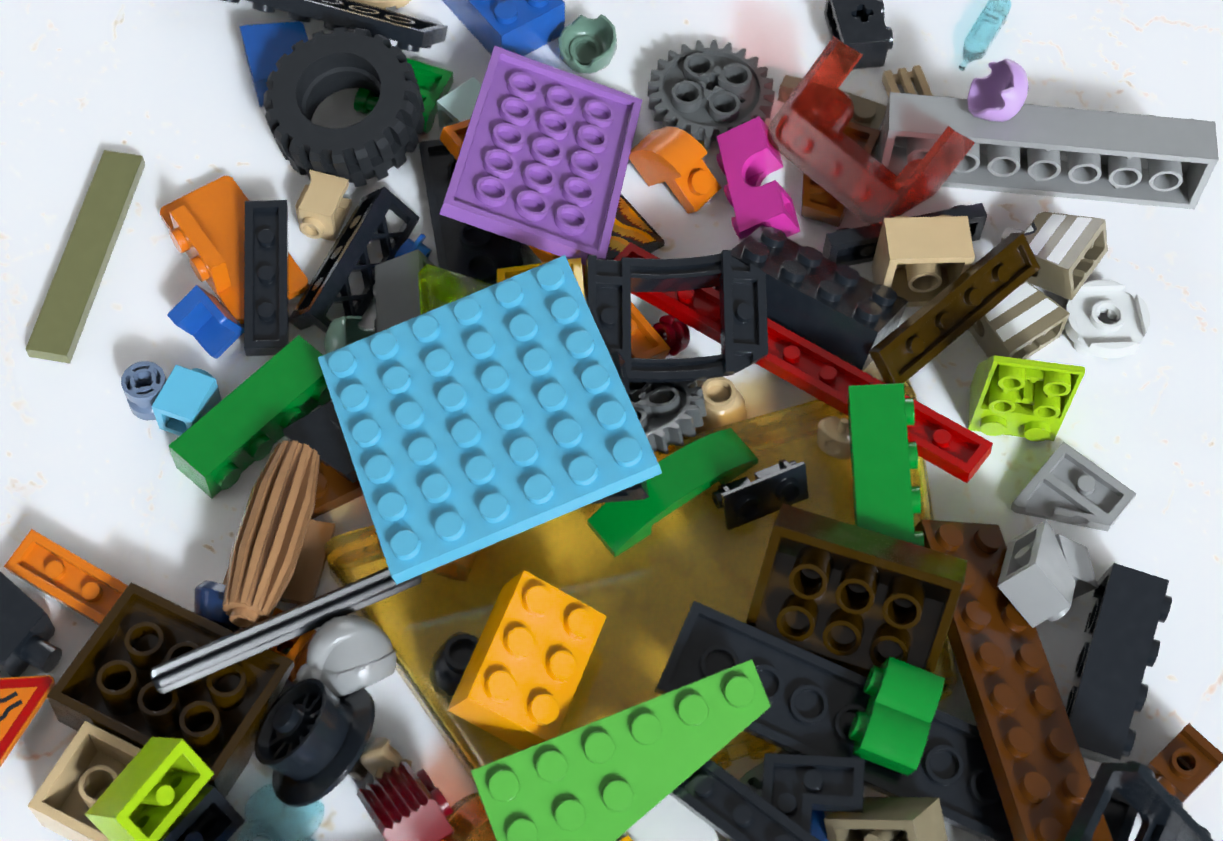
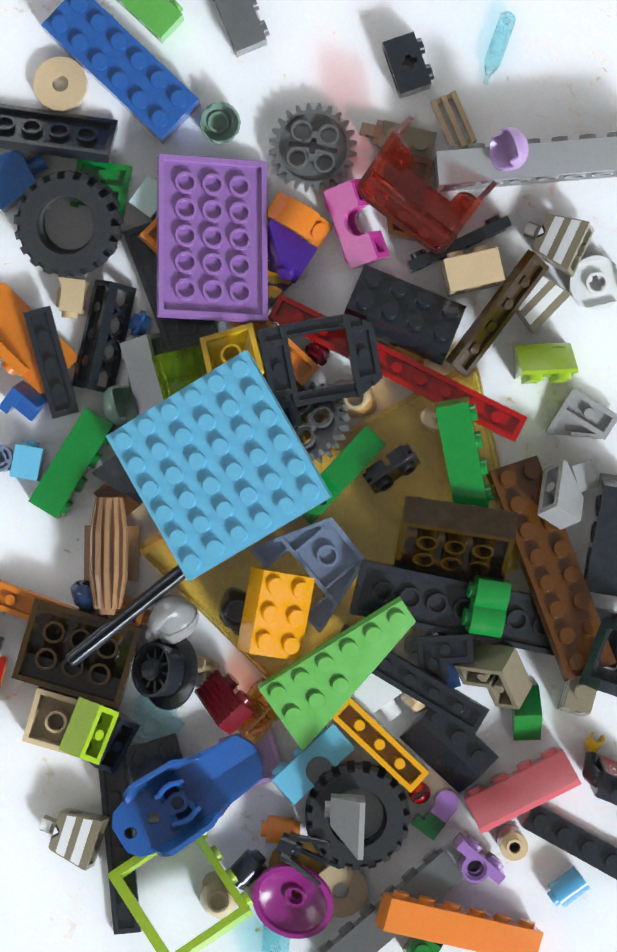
camera: 15 degrees left, 30 degrees up
(641, 606) = (325, 555): none -> sand blue wing
(653, 201) = (287, 252): none -> dark purple slope

